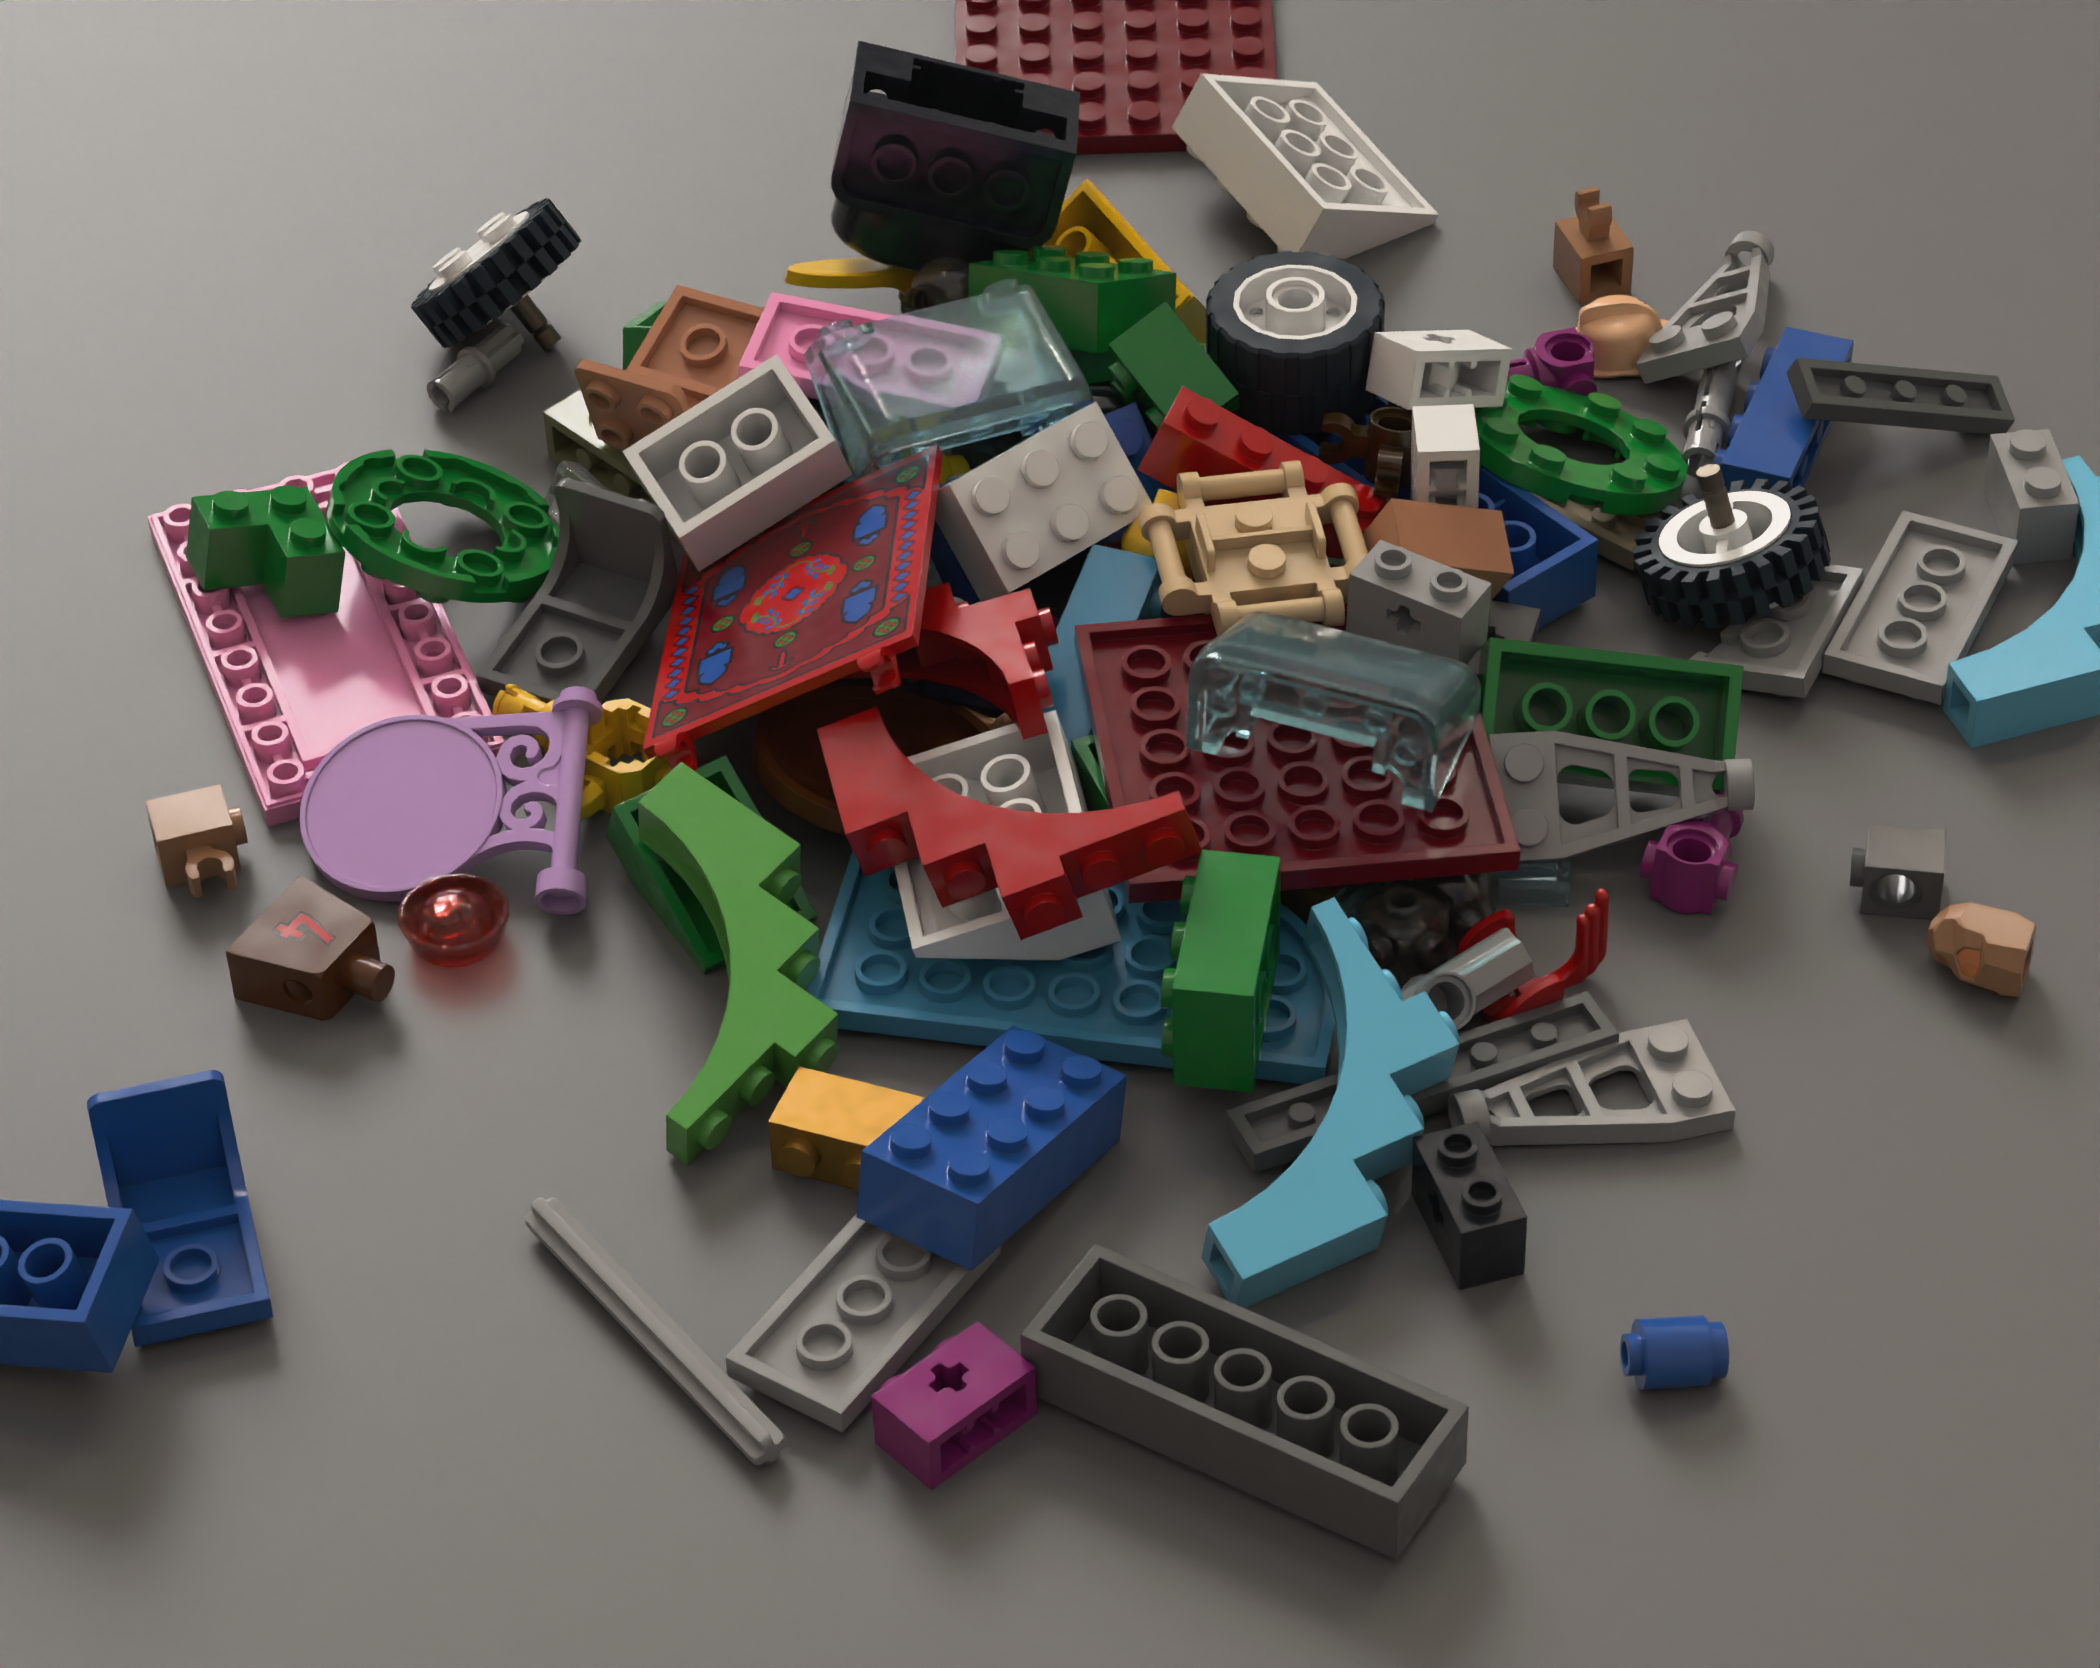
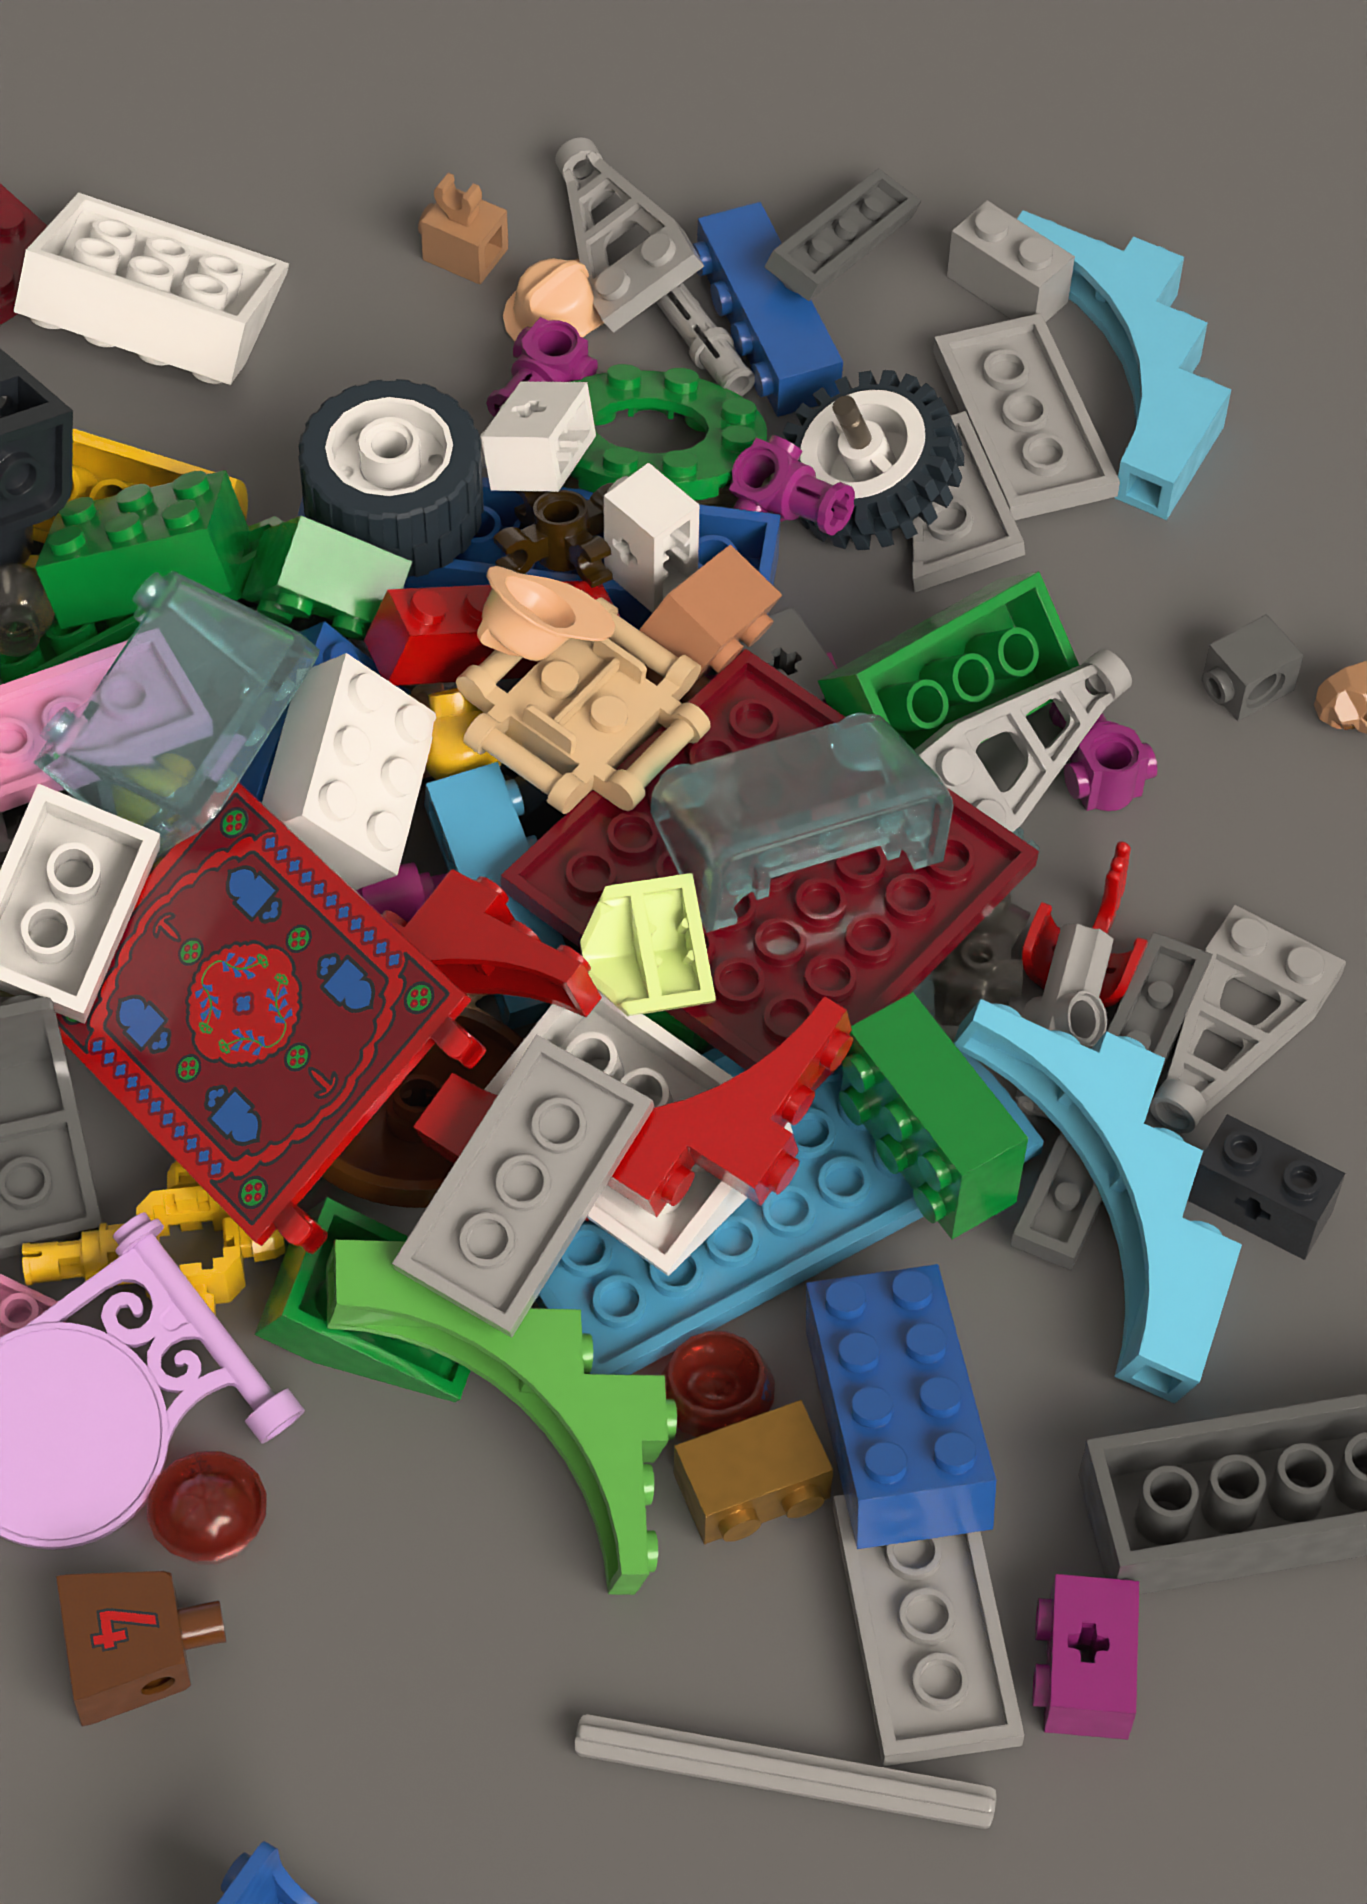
camera: 45 degrees left, 15 degrees up
(838, 795) = (523, 1185): none -> light grey plate
(894, 1057) = (717, 1382): none -> clear red hat
(1119, 715) = (649, 946): none -> yellowish green slope
(1268, 453) = (538, 615): none -> light nougat piece
(1418, 603) = (767, 680): light grey brick -> none
(1624, 522) = (793, 488): none -> magenta connector

